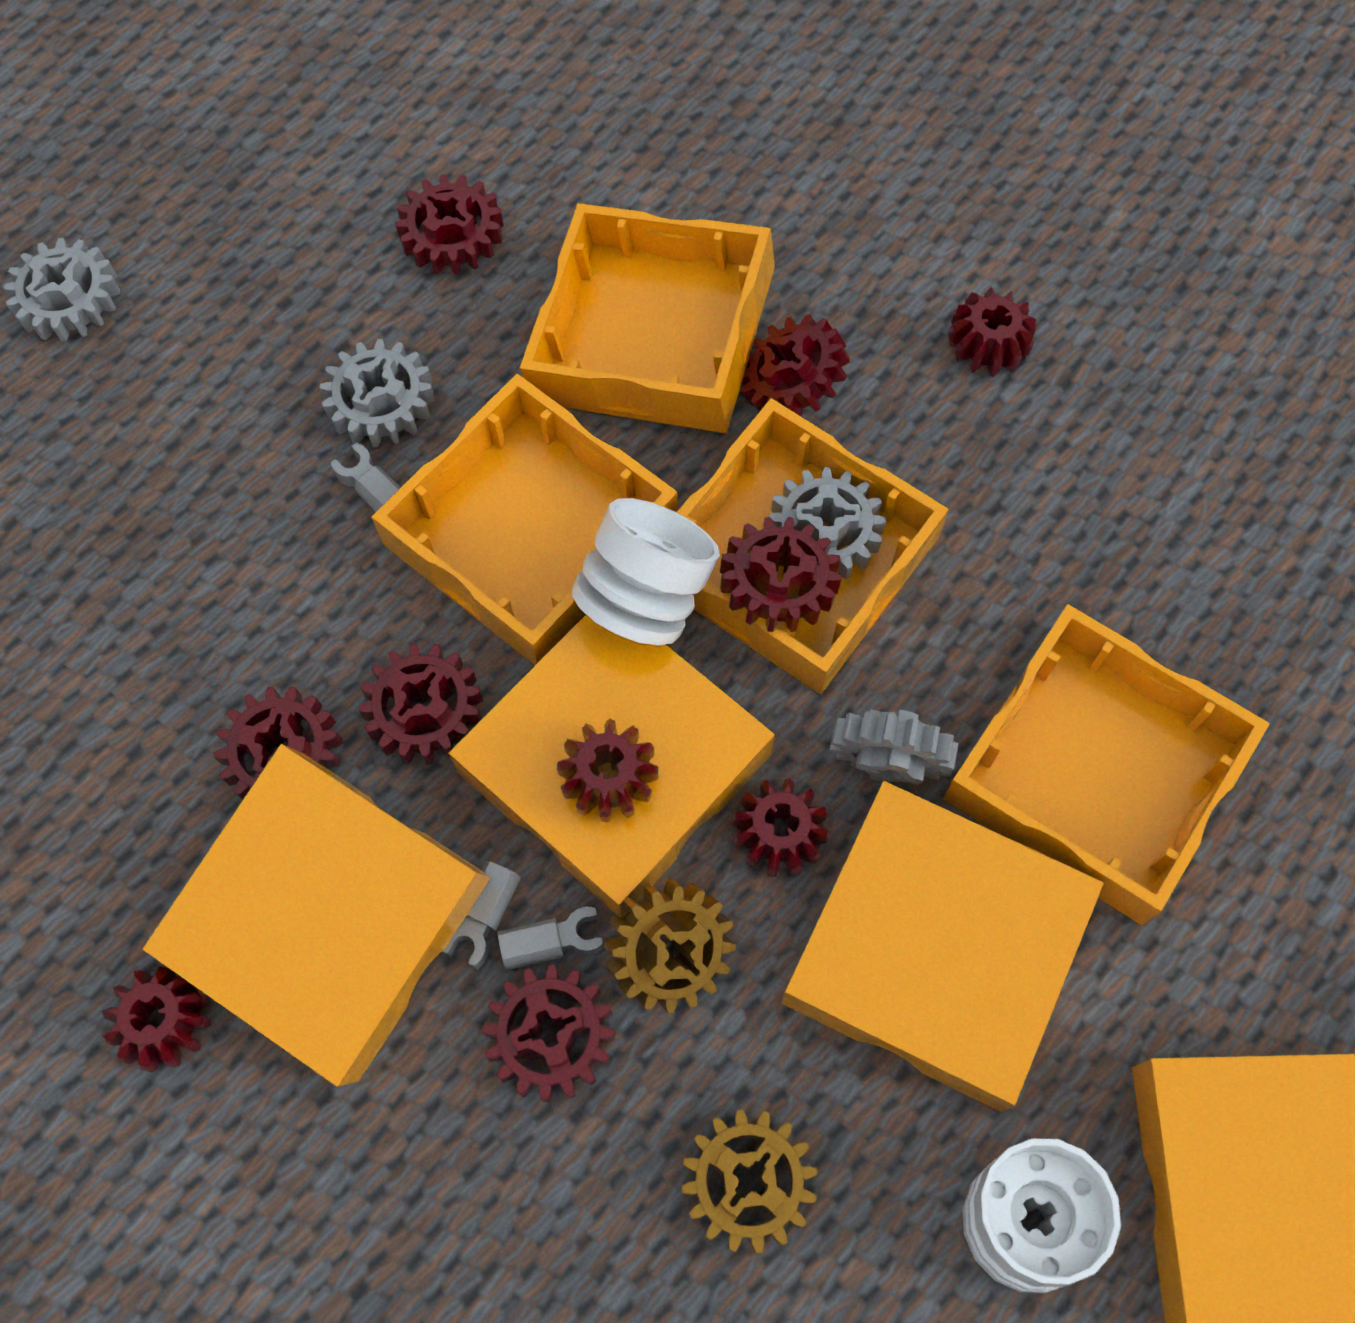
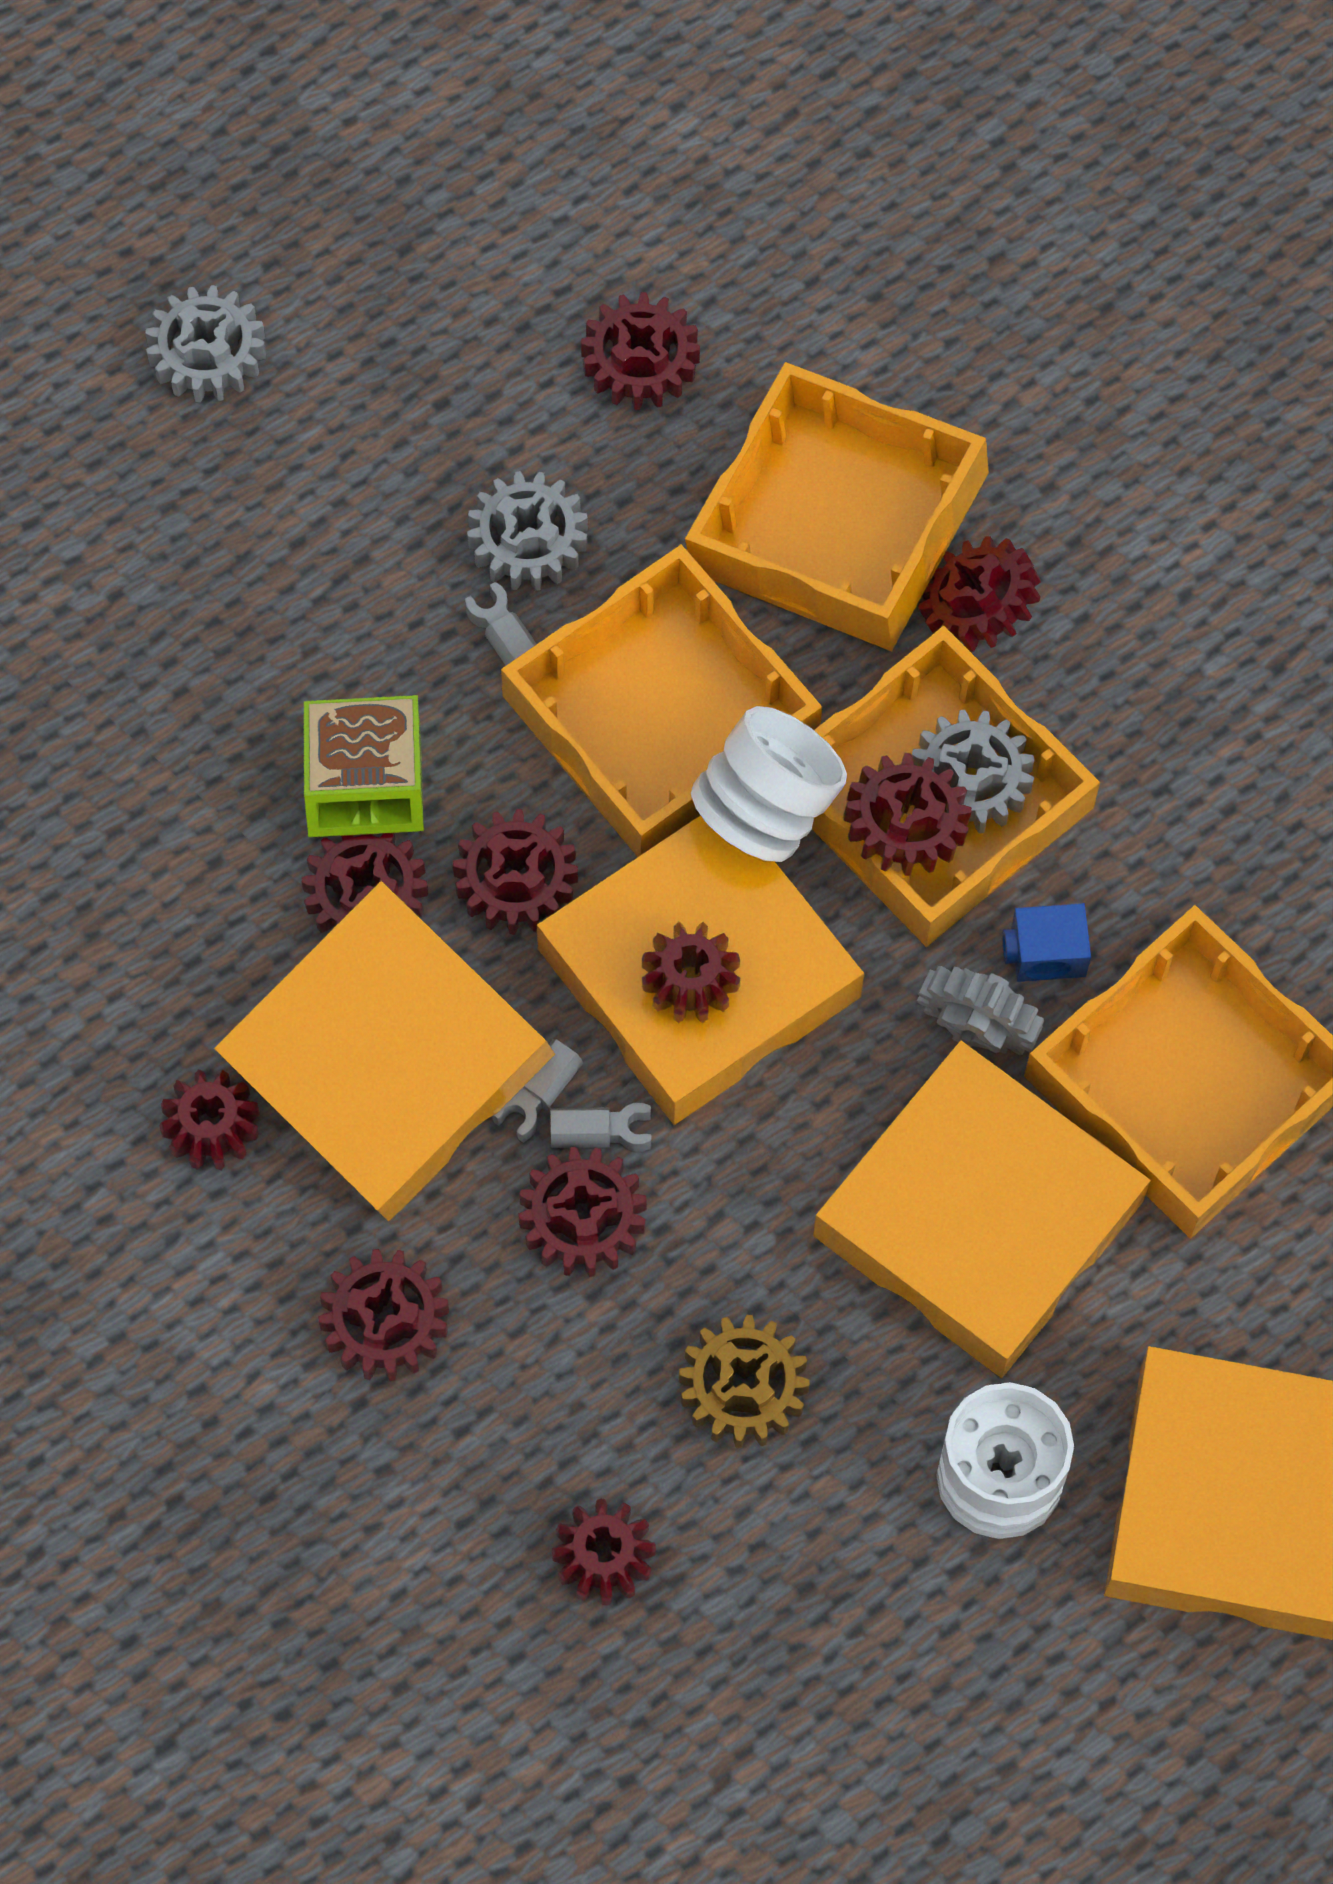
camera: 10 degrees right, 0 degrees up
(255, 635) = (363, 766): none -> brick
(363, 1223) = (361, 1305): none -> dark red gear
(698, 936) = (696, 1163): pearl gold gear -> none
(802, 827) = (865, 1084): dark red gear -> none
(936, 667) = (1048, 942): none -> blue brick
(992, 331) = (1218, 612): dark red gear -> none

